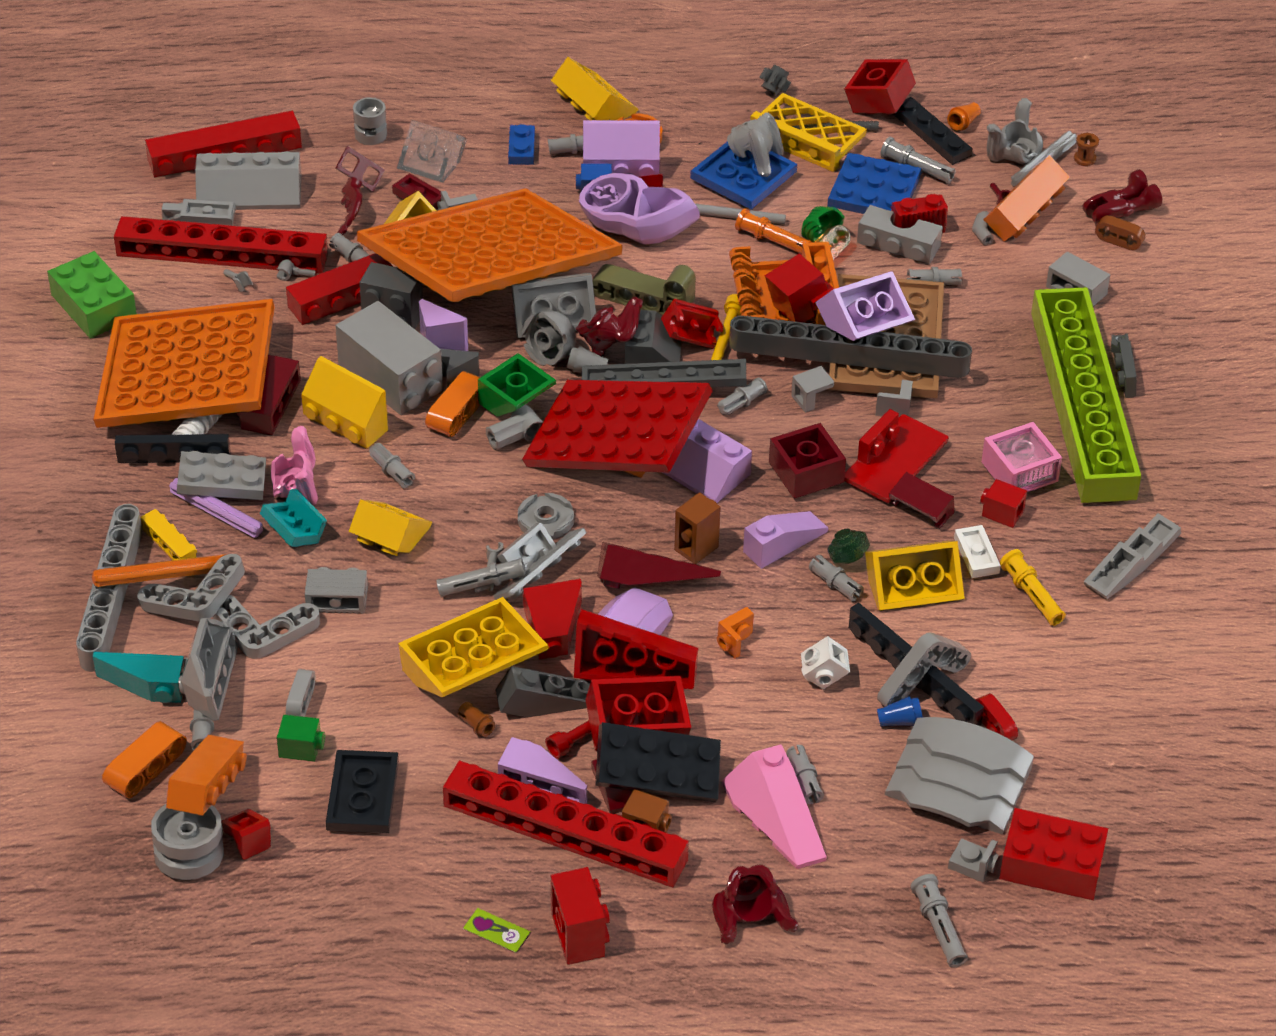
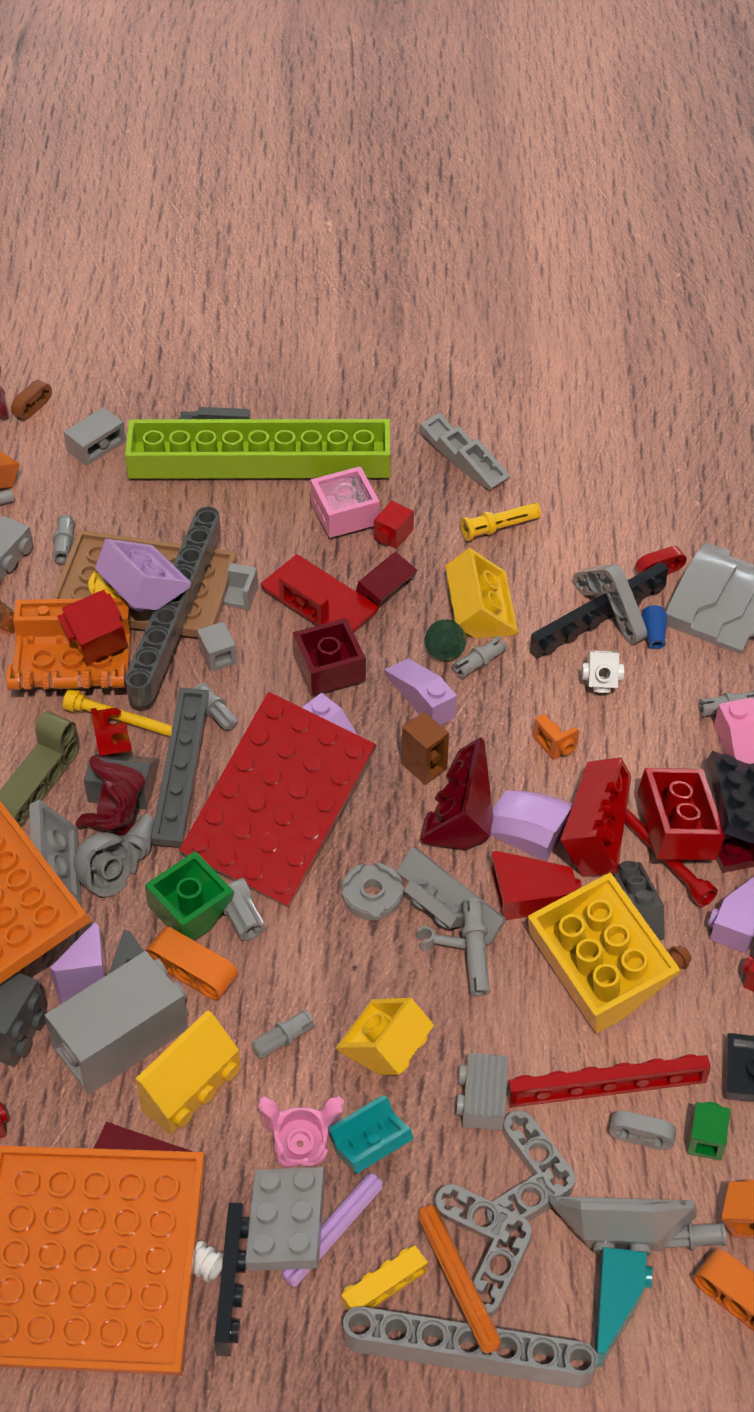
camera: 85 degrees left, 5 degrees up
(352, 680) = (608, 1081): none -> red plate
(977, 551) = (441, 552): white plate -> none

